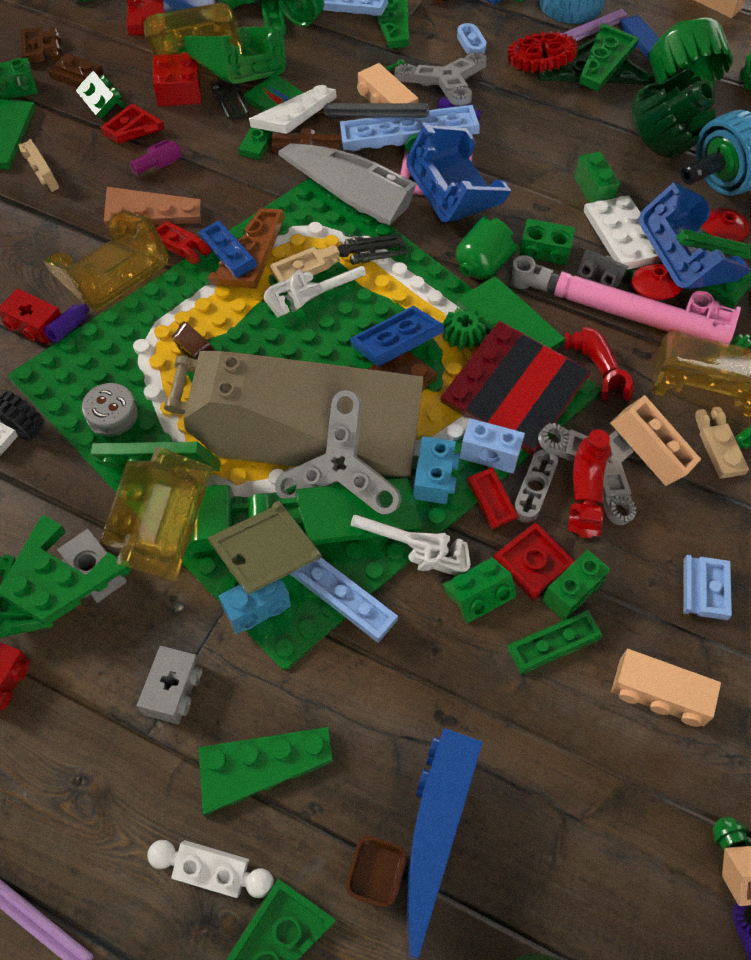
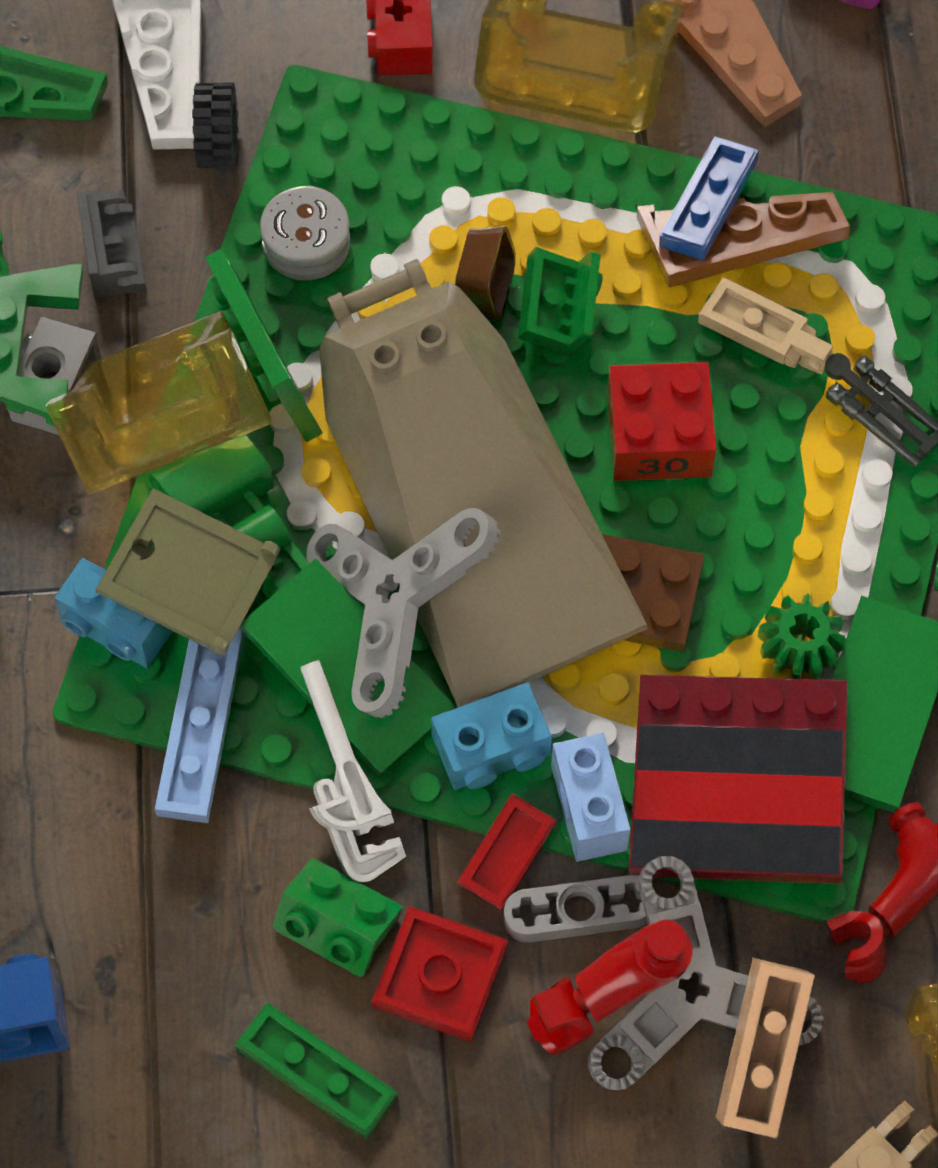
camera: 60 degrees right, 5 degrees up
(36, 501) = (111, 244): none -> dark grey hinge
(66, 322) = (426, 75): dark purple cylinder -> none
(182, 242) = (686, 119): red hinge -> none
(232, 327) = (559, 300): none -> green bracket
(302, 290) = (713, 344): white piece -> none
(323, 322) = (661, 421): none -> red brick
(396, 335) = (713, 543): blue tile -> none
(575, 585) = (422, 1051): green brick -> none

